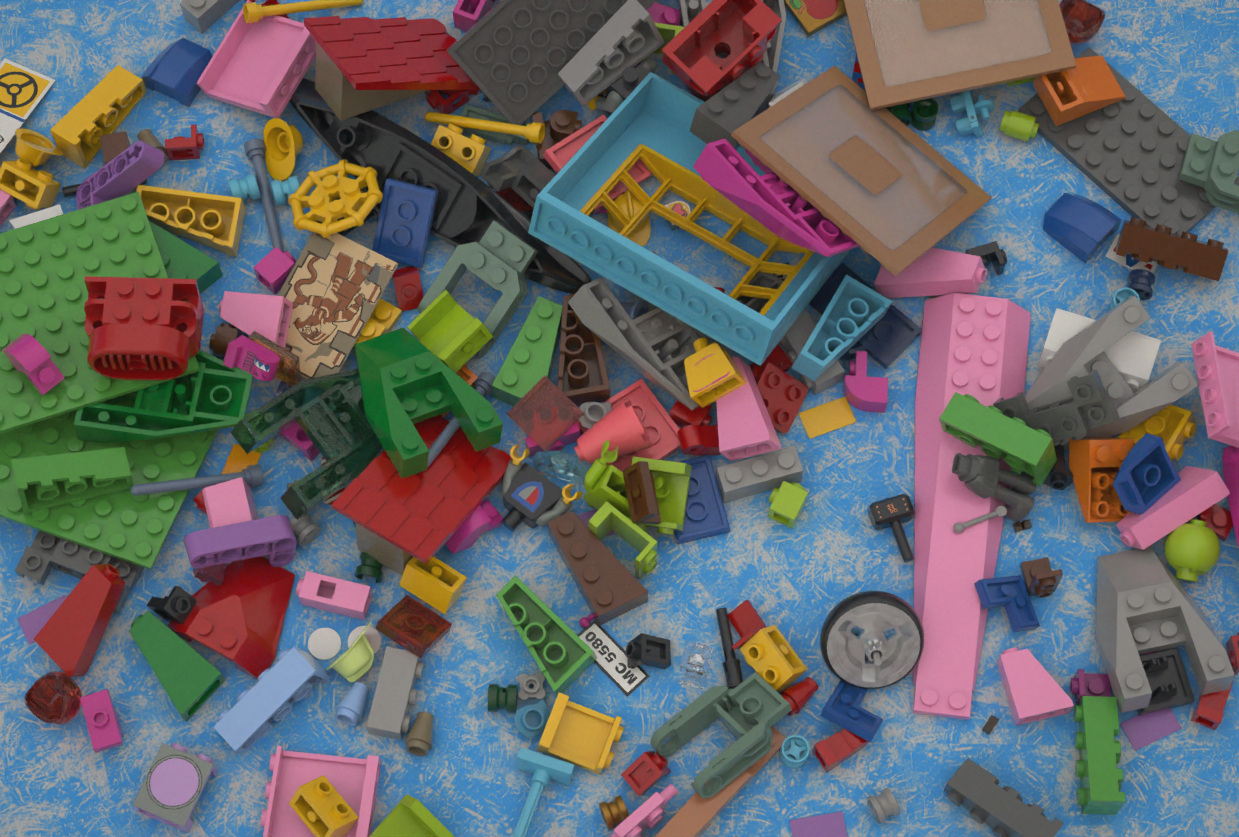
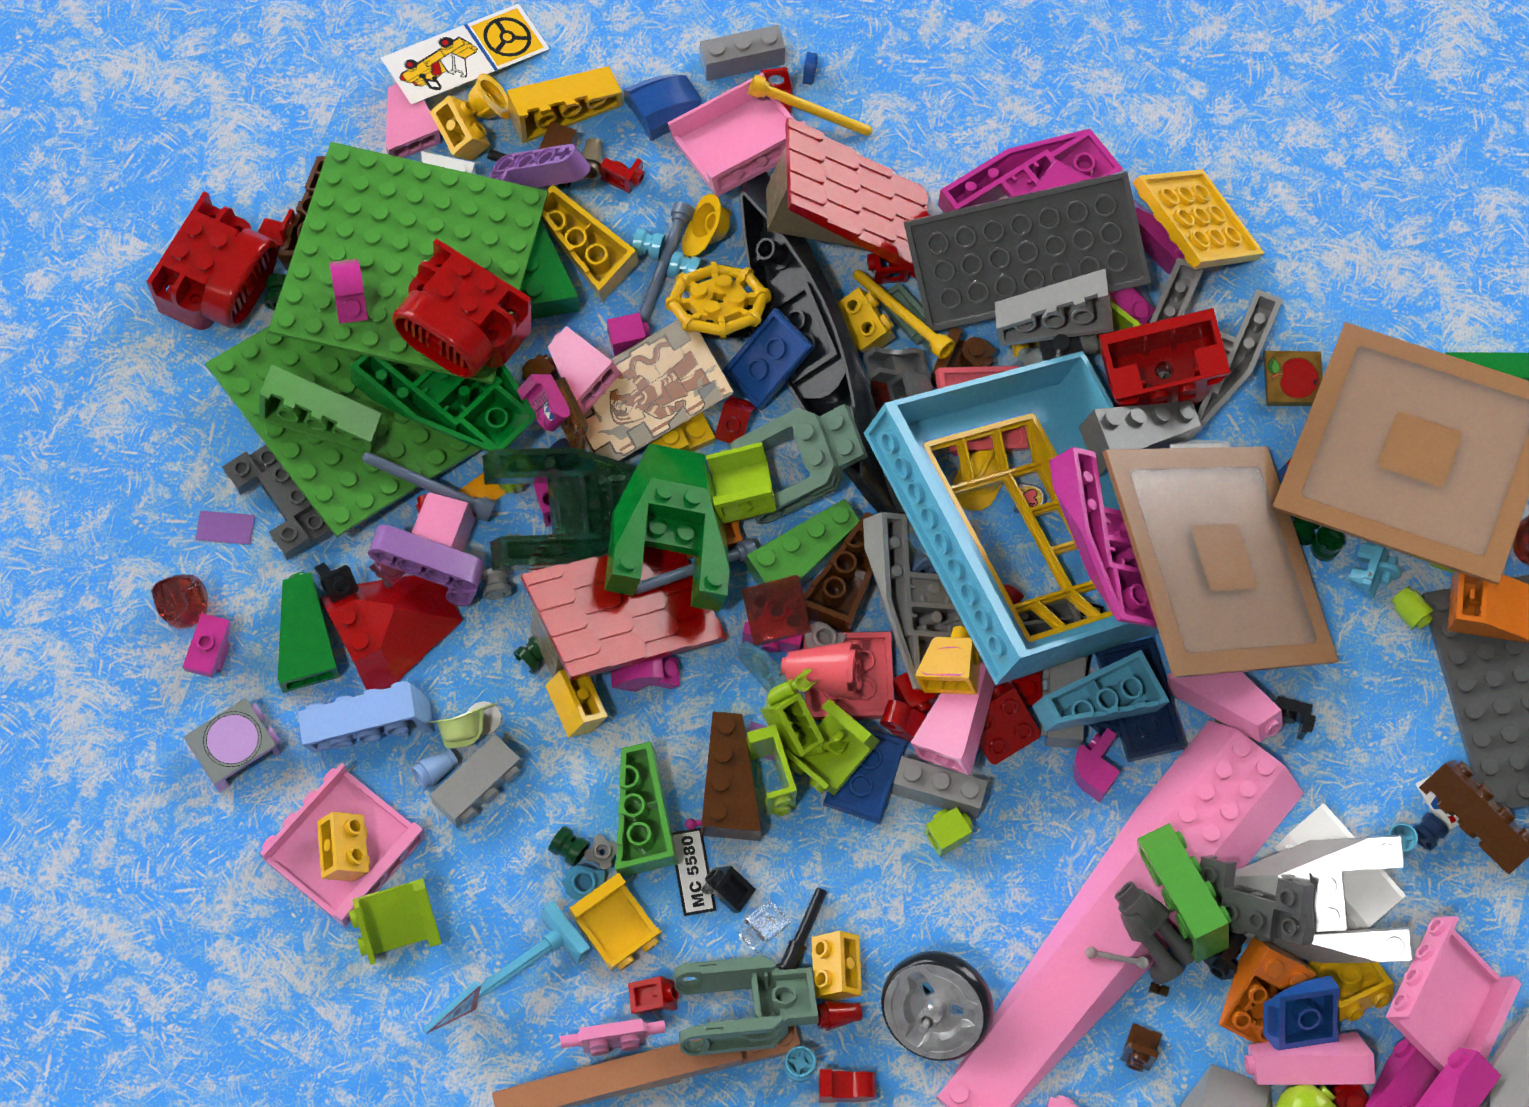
camera: 30 degrees right, 0 degrees up
(81, 620) = (248, 545): red slope -> none
(324, 643) = (447, 698): white sticker -> none
(334, 595) = (483, 660): bright pink brick -> none
(413, 626) = (532, 731): clear red tile -> none
(420, 736) = (473, 835): dark tan cone -> none
(531, 495) = (717, 677): torso -> none
(613, 812) = (598, 1012): pearl gold wheel -> none
(641, 494) = (812, 738): reddish brown panel -> none
(746, 622) = (835, 916): red bracket -> none
(827, 417) = (1042, 774): yellow sticker -> none
(845, 711) = (870, 1057): blue tile -> none
(892, 513) = (1039, 900): black piece -> none
(1011, 594) = (1103, 1051): blue tile -> none
(1080, 224) = (1409, 738): blue slope -> none

